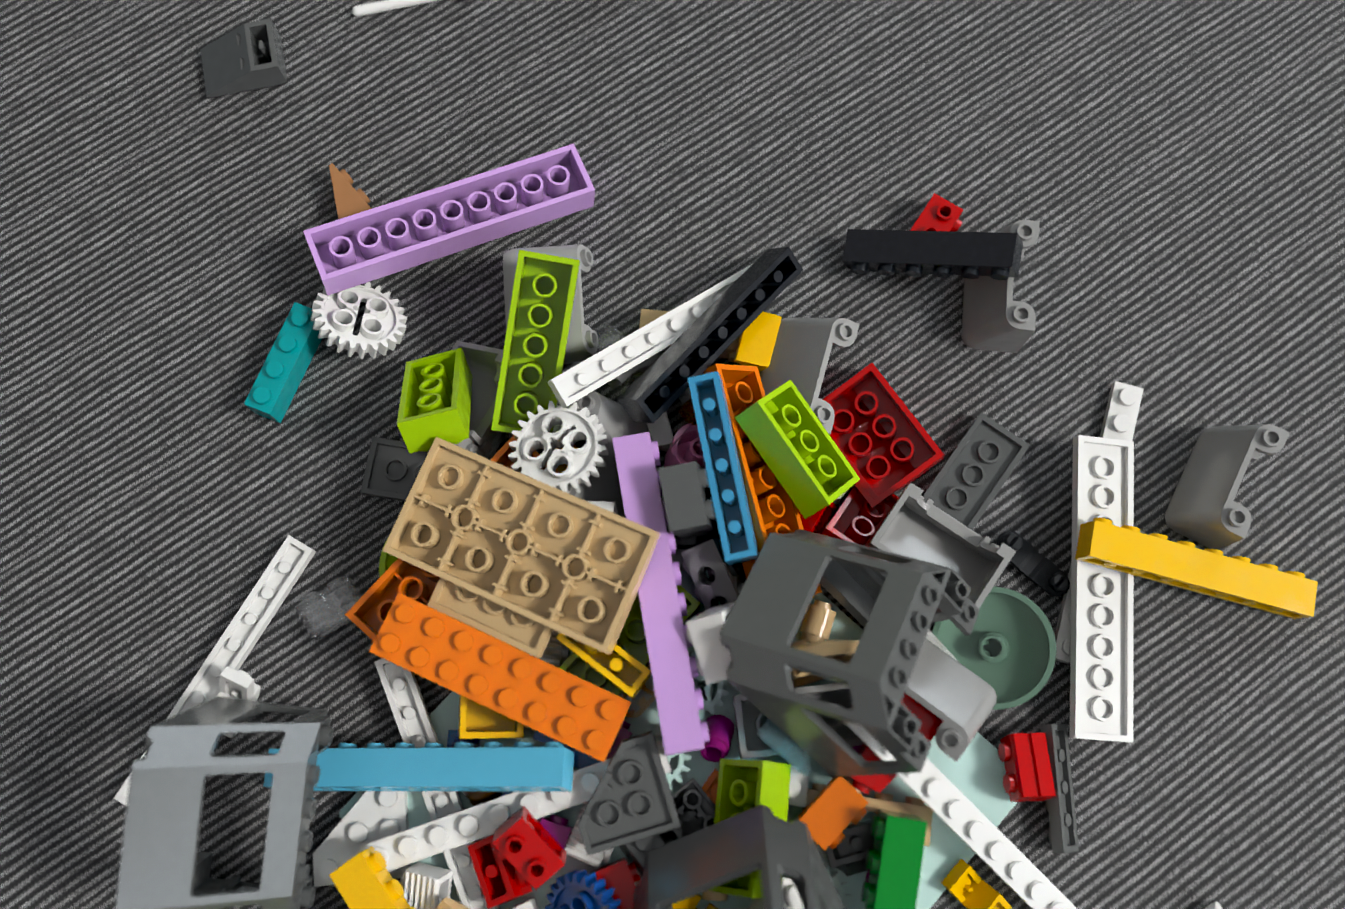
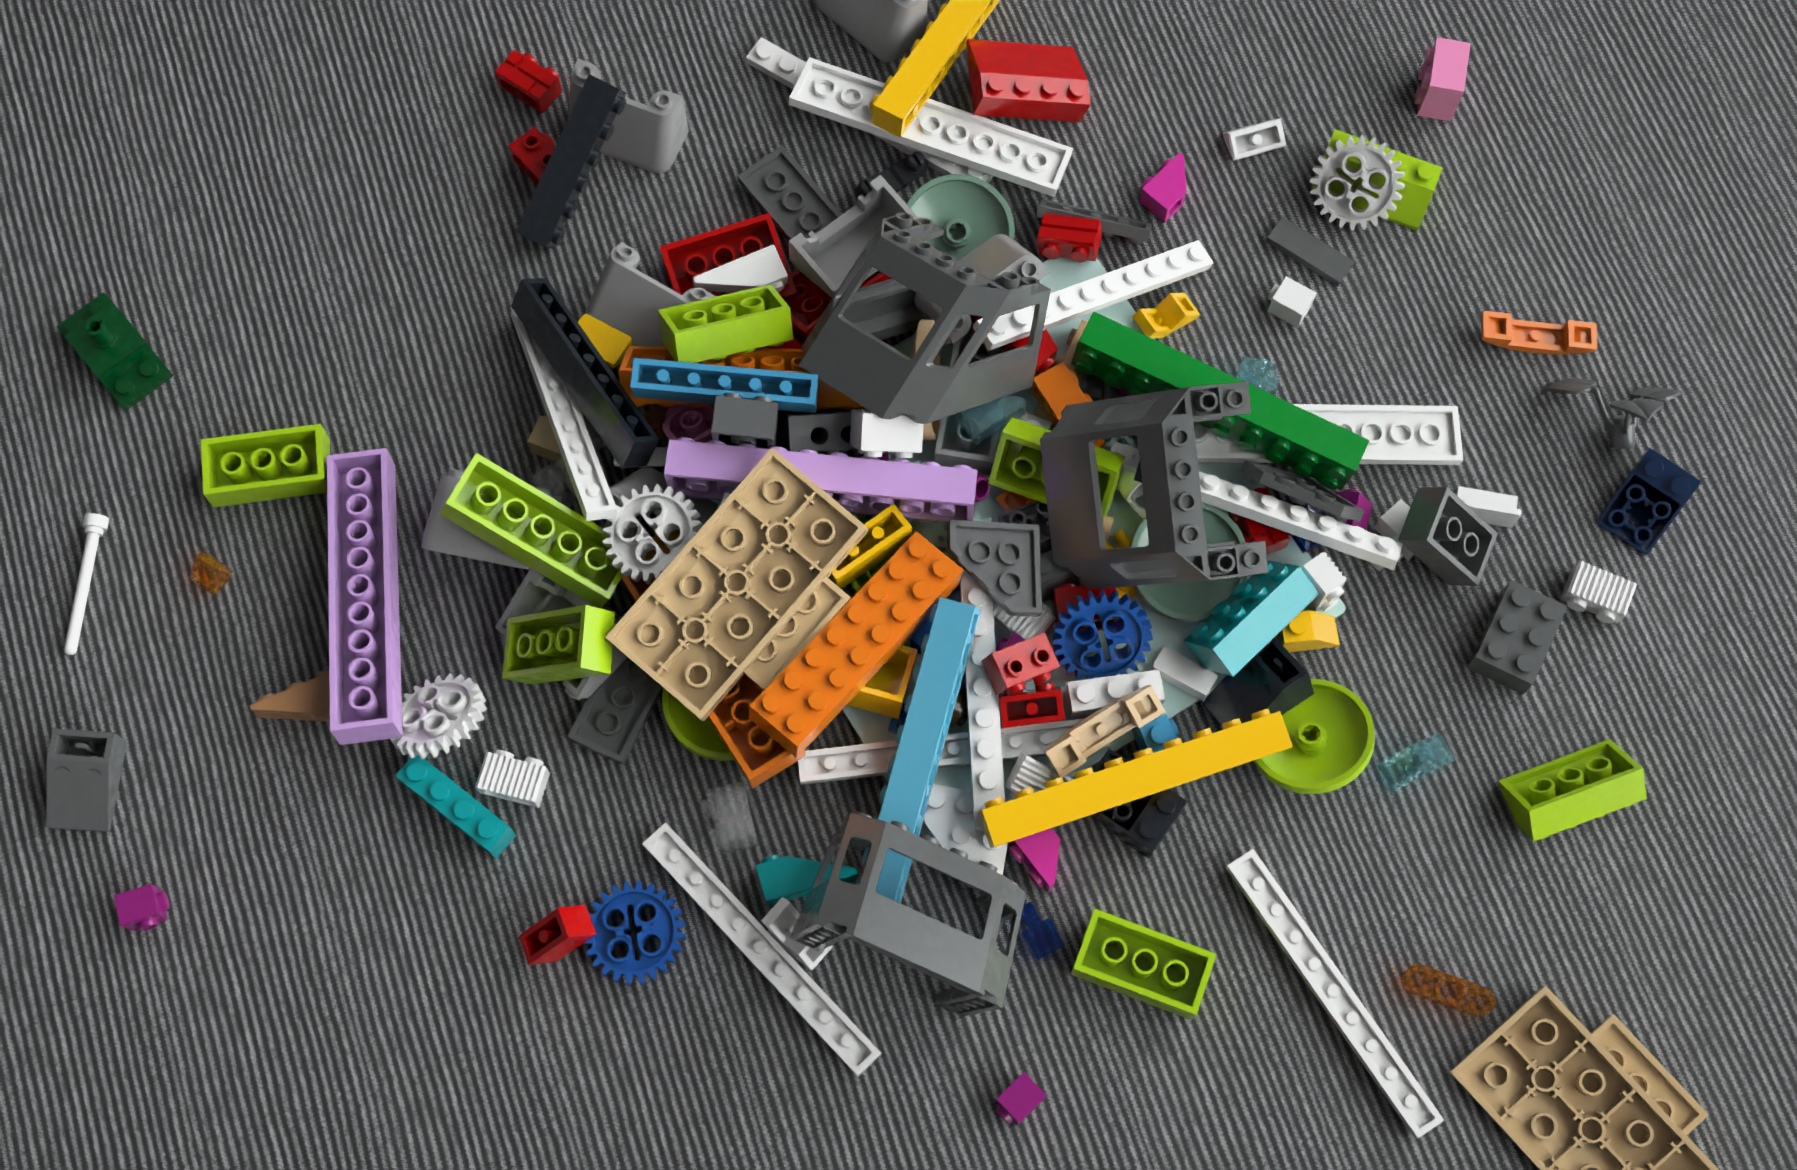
camera: 75 degrees left, 5 degrees down
(145, 144) = (142, 907): none -> magenta brick
(182, 487) = (557, 934): none -> red brick
(215, 577) = (662, 926): none -> blue gear
(286, 678) = (793, 877): none -> teal slope
(324, 403) = (512, 778): none -> white brick
(449, 91) = (210, 573): none -> clear orange brick
(555, 97) = (265, 465): none -> lime brick
(872, 459) = (747, 272): none -> white slope
(1013, 190) = (528, 80): none -> red brick
(1122, 858) = (1165, 191): none -> dark pink slope
(1195, 671) = (1026, 81): none -> red slope

